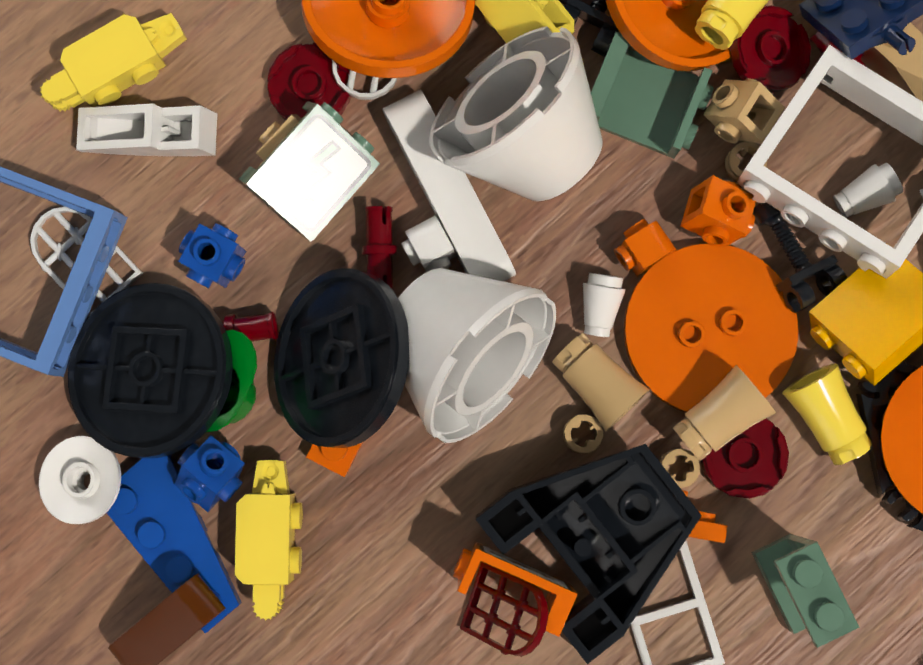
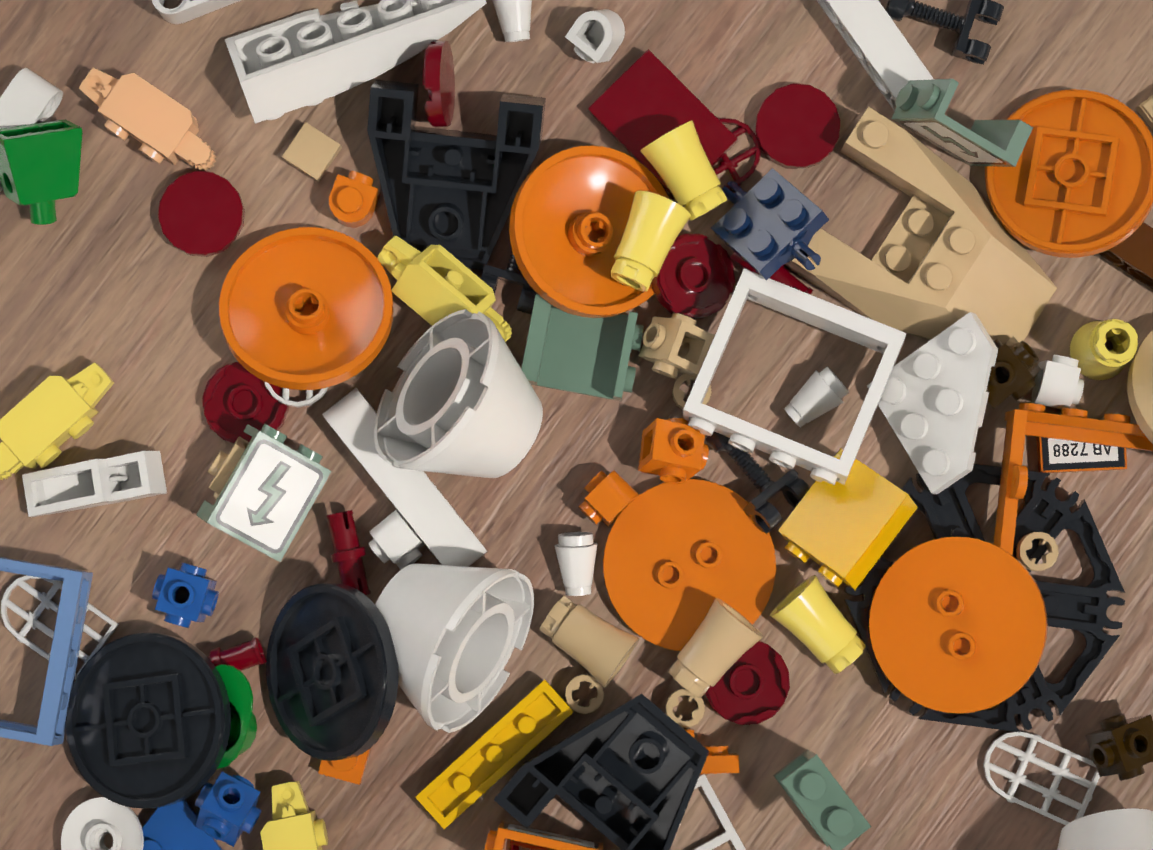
camera: 10 degrees left, 0 degrees up
(483, 474) = (494, 754): none -> yellow plate

